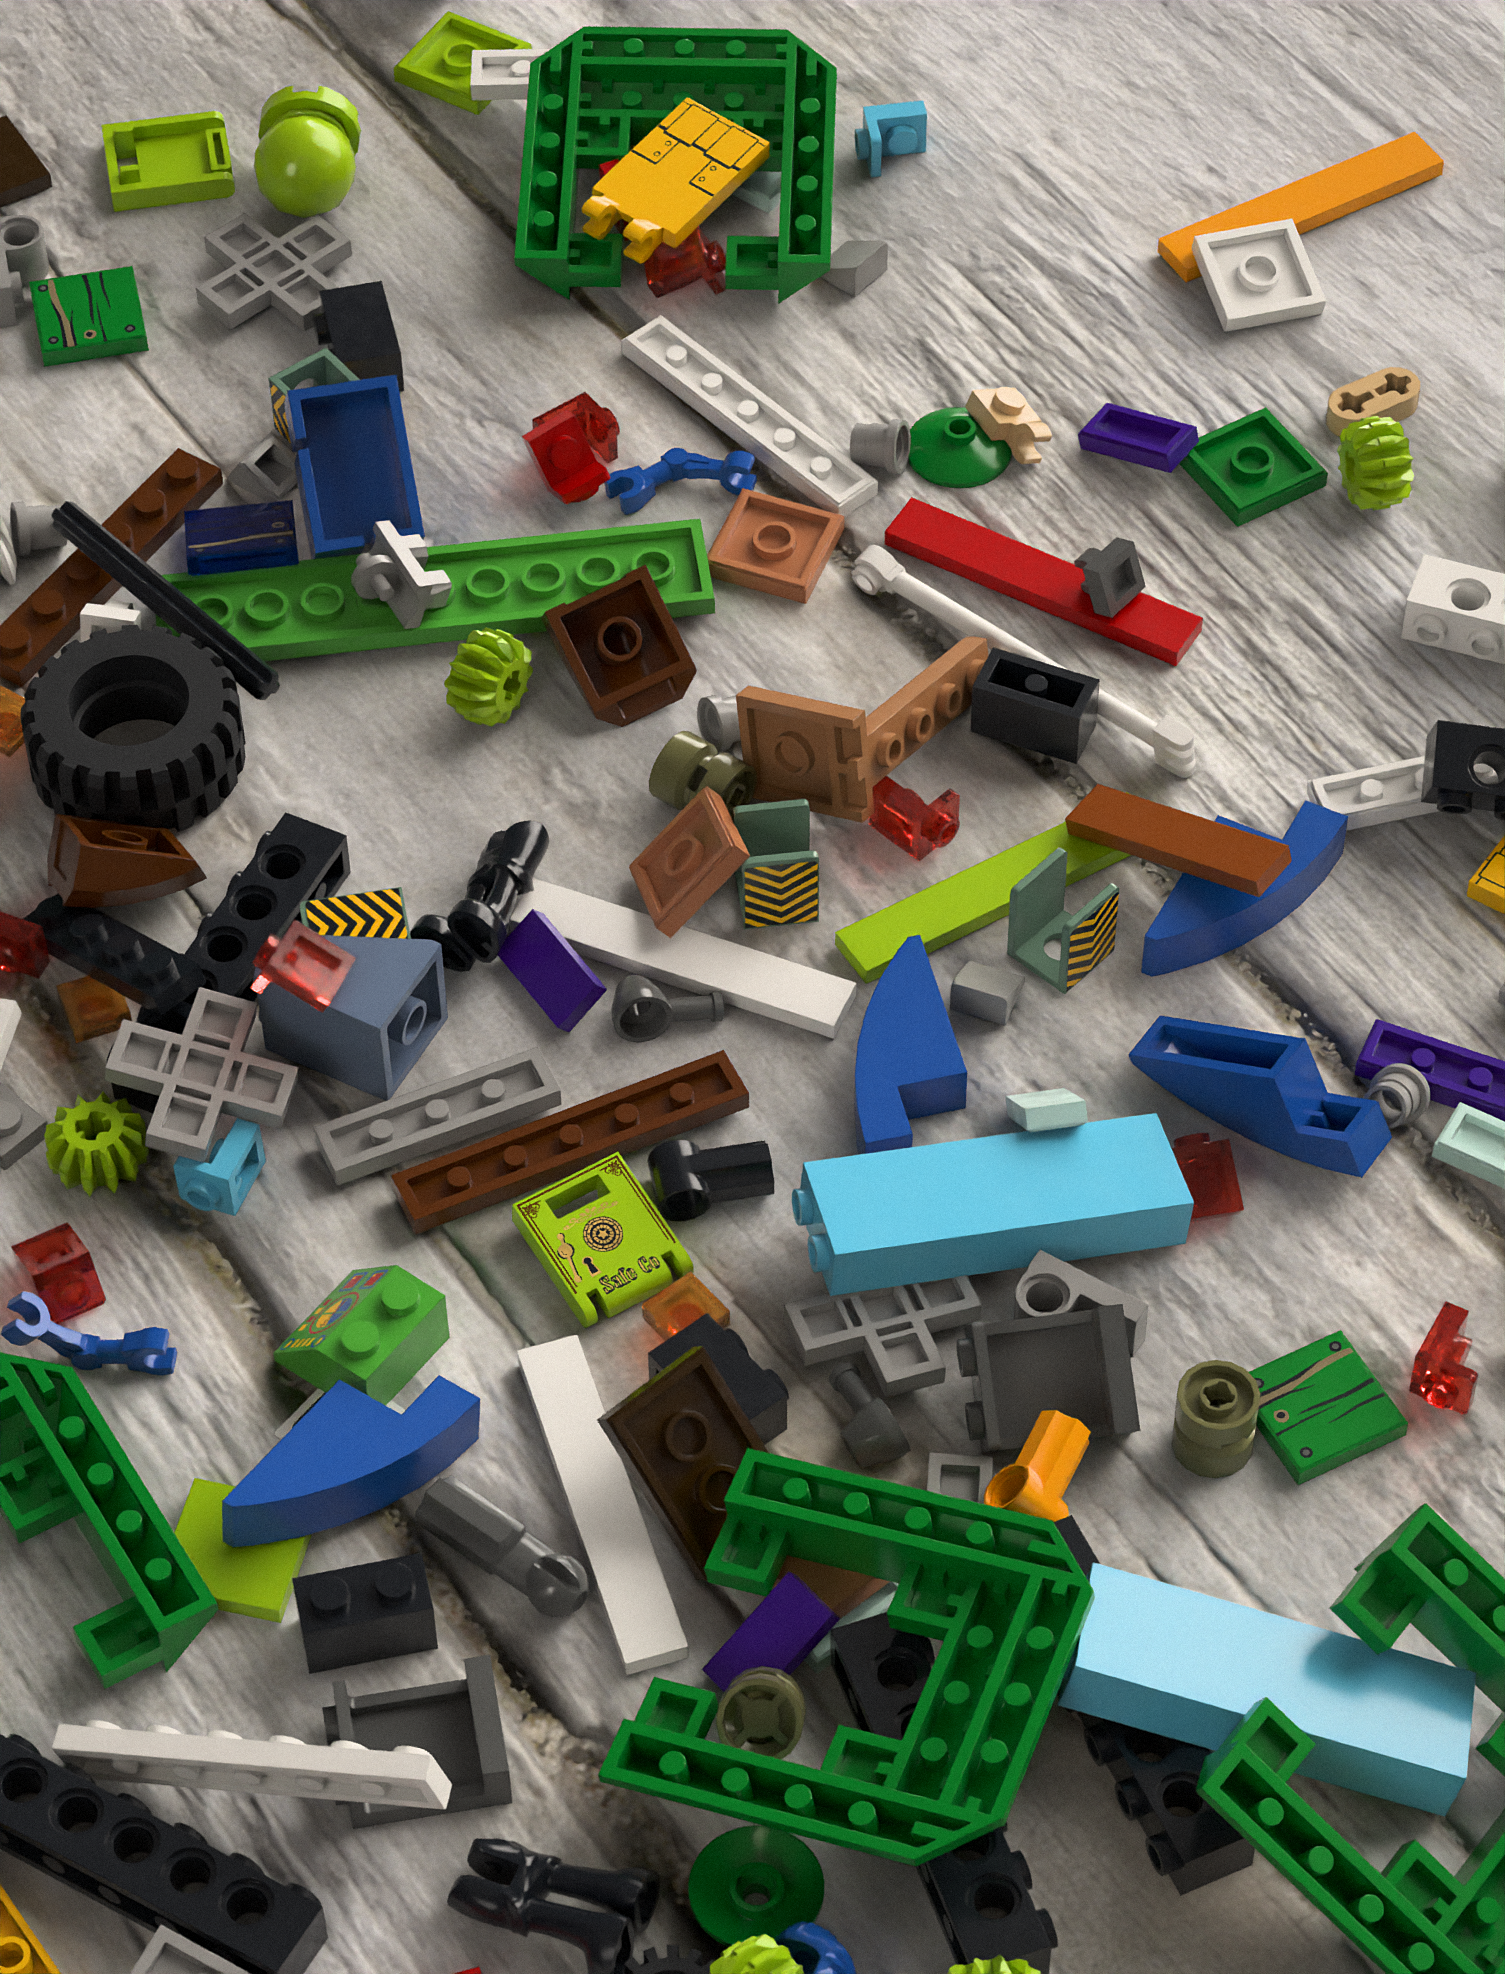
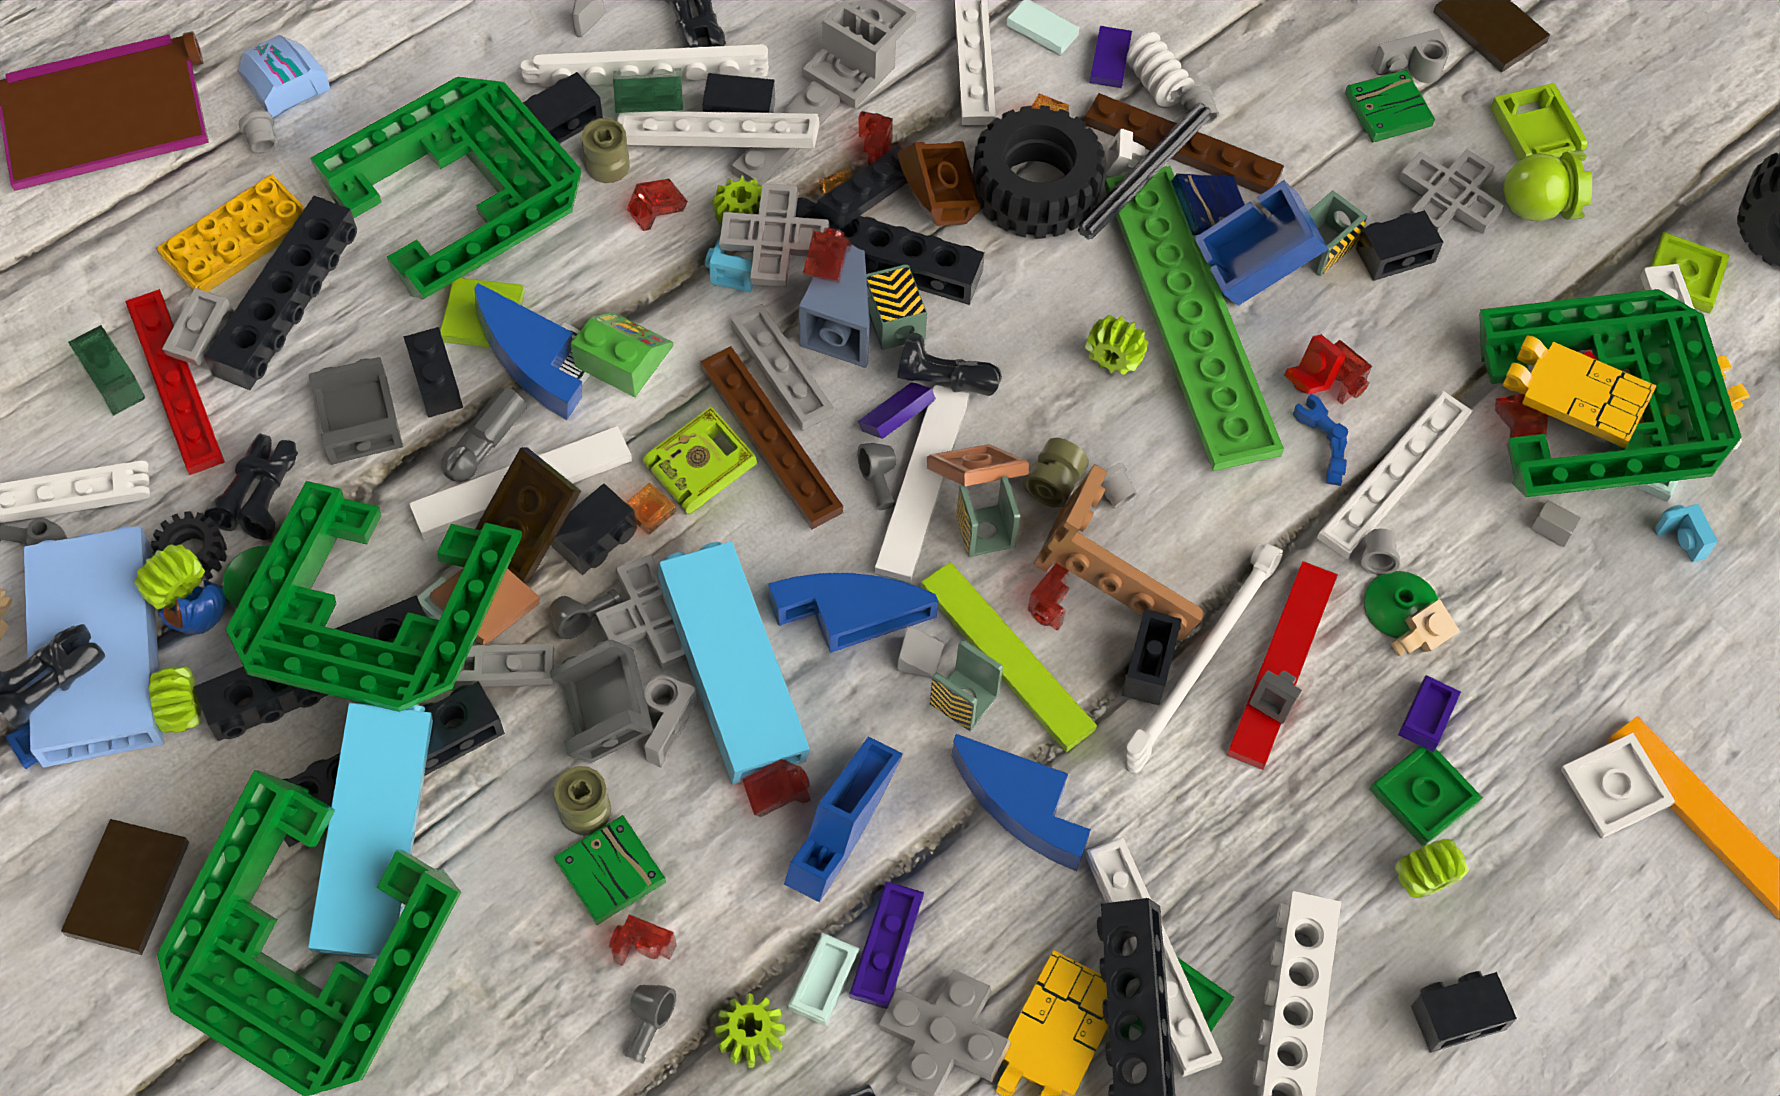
camera: 80 degrees right, 10 degrees up
(140, 1350) = (607, 224): blue piece -> none
(254, 1766) = (320, 327): white plate -> none
(397, 575) = (1174, 292): light grey hips -> none
(622, 649) = (1155, 412): reddish brown slope -> none
(693, 1179) = (749, 504): black piece -> none
(762, 1712) = (360, 565): olive wheel -> none
(774, 545) = (1281, 500): nougat tile -> none
(775, 1633) = (416, 571): dark purple tile -> none
(1042, 1469) = (524, 701): light orange piece -> none
(1047, 1109) = (809, 685): light aqua tile -> none
(1178, 840) = (1036, 748): dark orange tile -> none
(1383, 394) = (1510, 873): tan beam -> none
(1408, 1086) = (848, 901): light grey piece -> none

